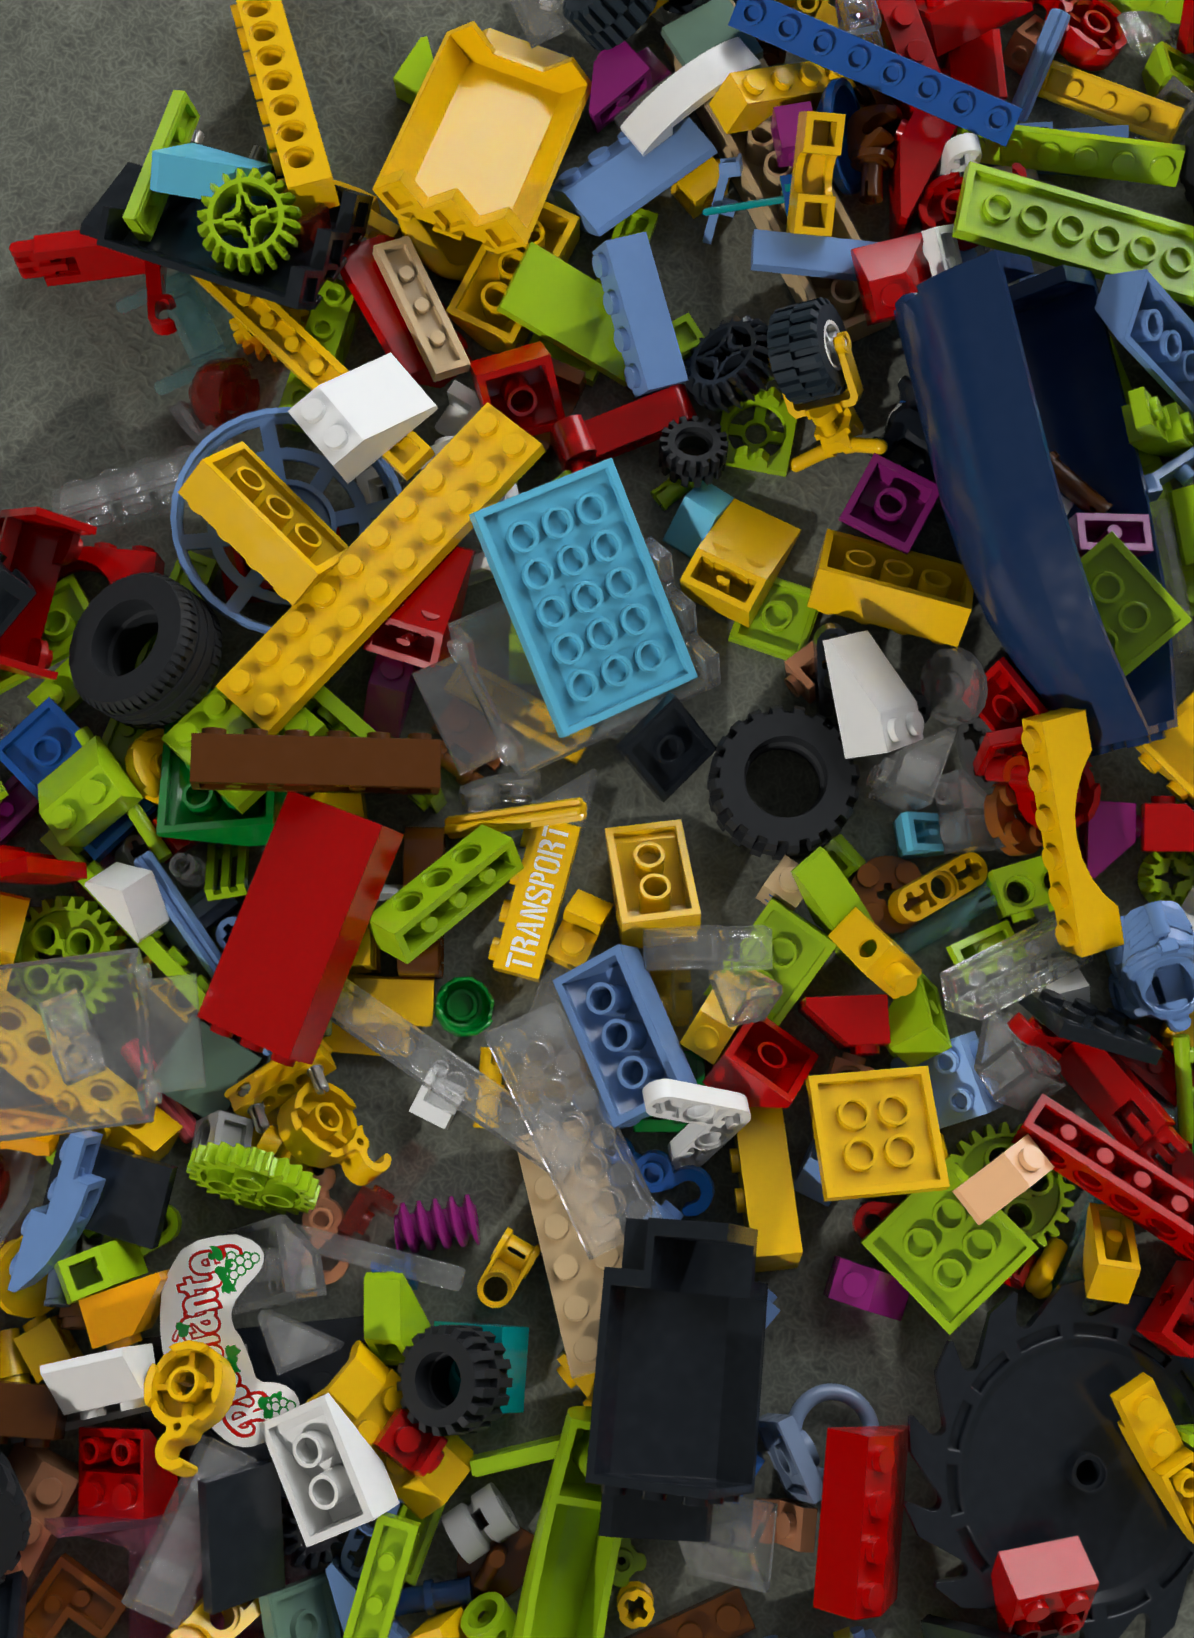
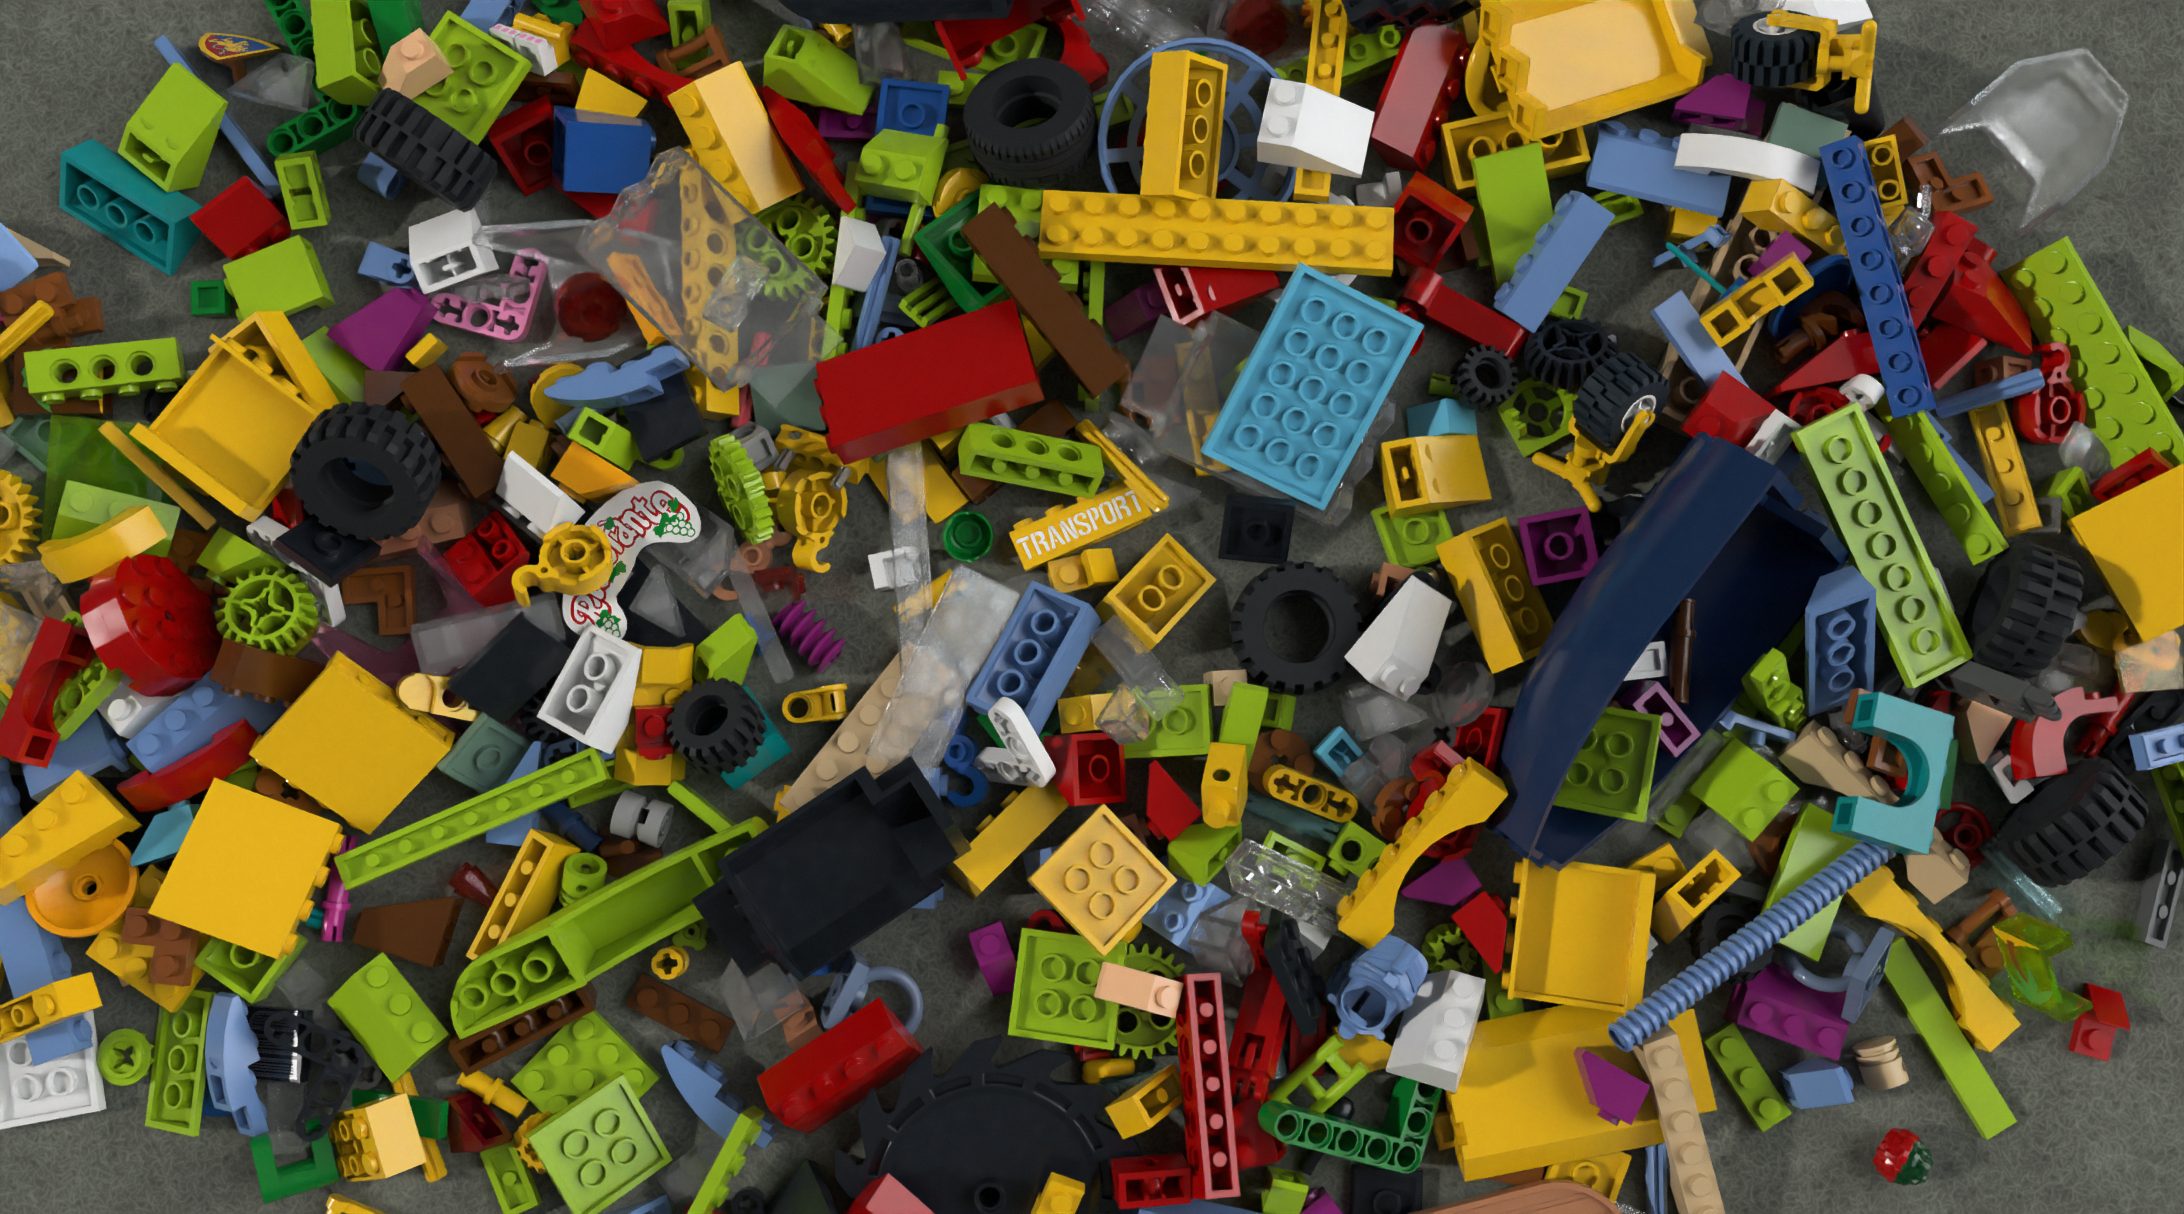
camera: 50 degrees right, 5 degrees up
(421, 308) = (1427, 106): tan plate -> none

